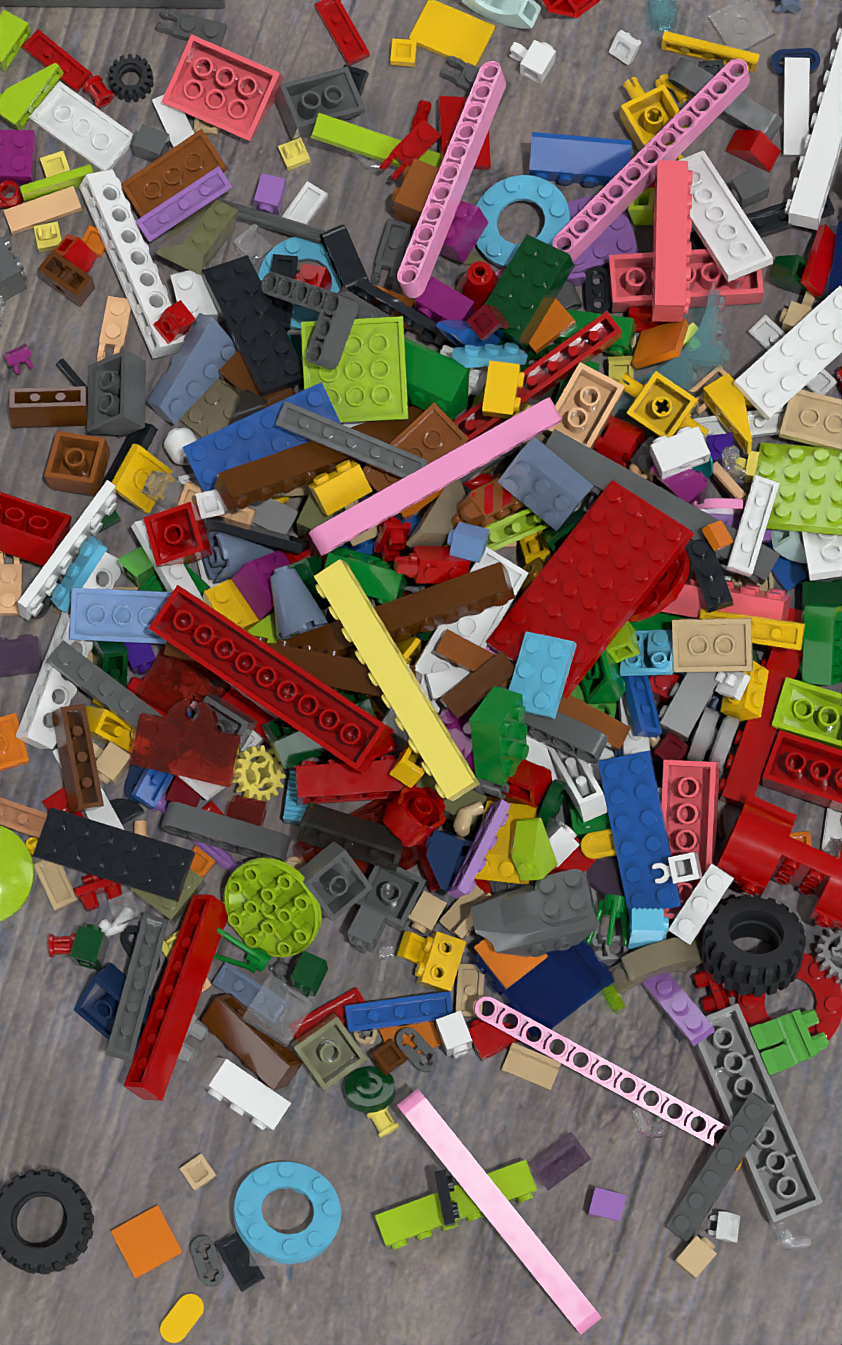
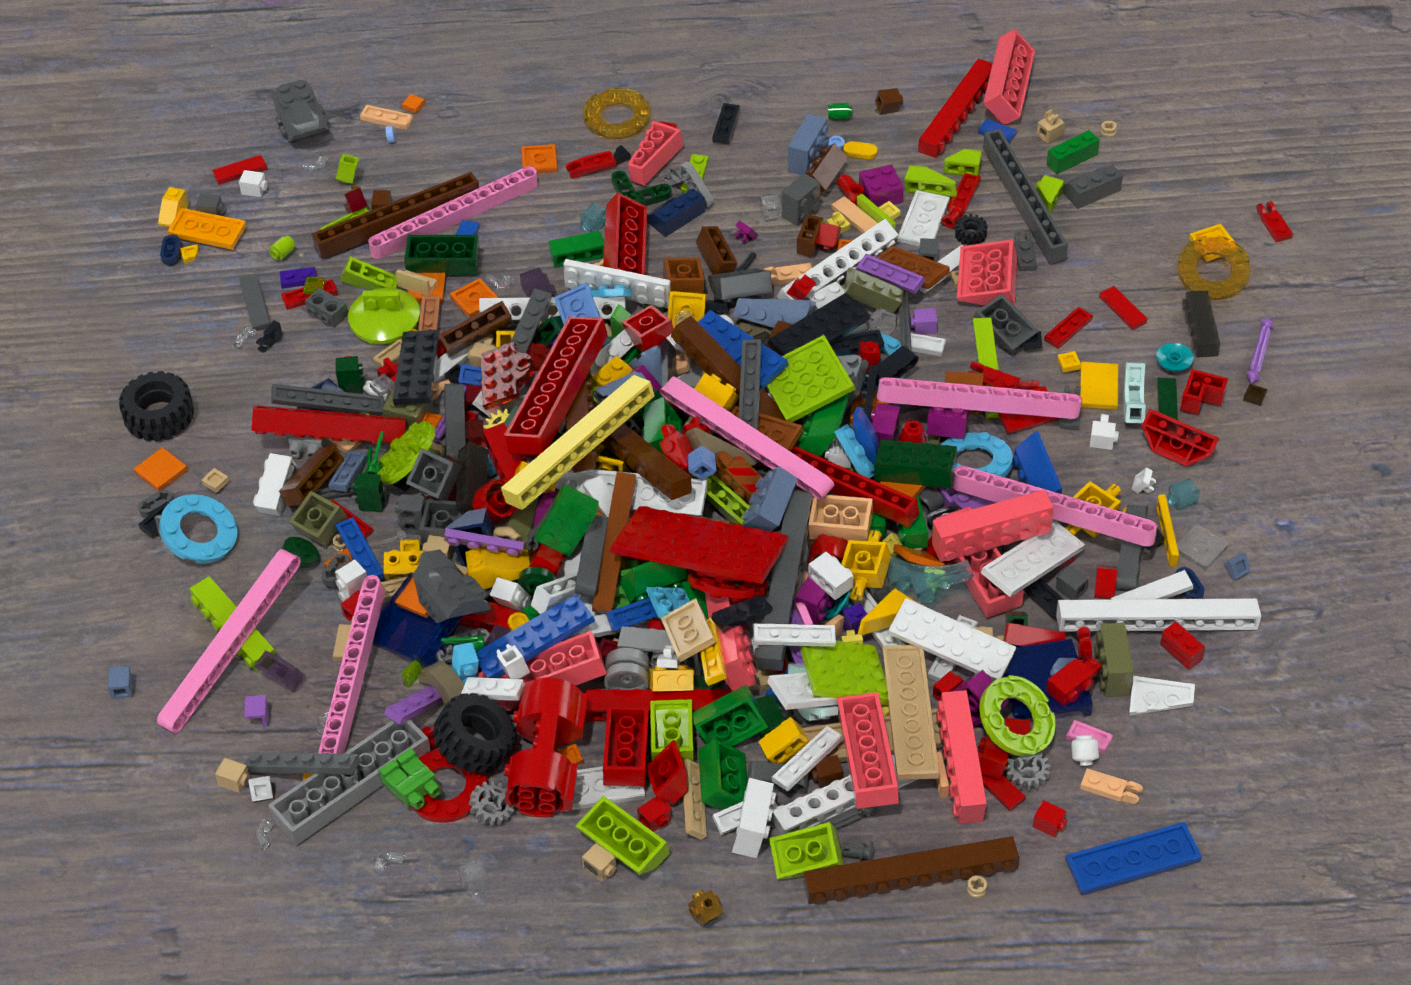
camera: 70 degrees right, 25 degrees down
(182, 1318) = (113, 502): yellow tile -> none
(278, 1010) = (336, 479): clear tile -> none
(294, 154) = (962, 327): light yellow tile -> none
(334, 321) = (838, 342): dark grey beam -> none
(388, 1057) = (324, 554): reddish brown tile -> none
(445, 1186) = (226, 606): black plate -> none
(478, 685) = (608, 505): reddish brown tile -> none
(487, 321) = (878, 434): dark red panel -> none
(501, 390) = (828, 455): yellow brick -> none
(532, 850) = (490, 568): lime slope -> none
(542, 673) = (619, 528): medium azure plate -> none
(624, 644) = (671, 578): lime brick -> none
(717, 535) = (774, 610): orange tile -> none
(729, 455) = (842, 621): clear arm -> none

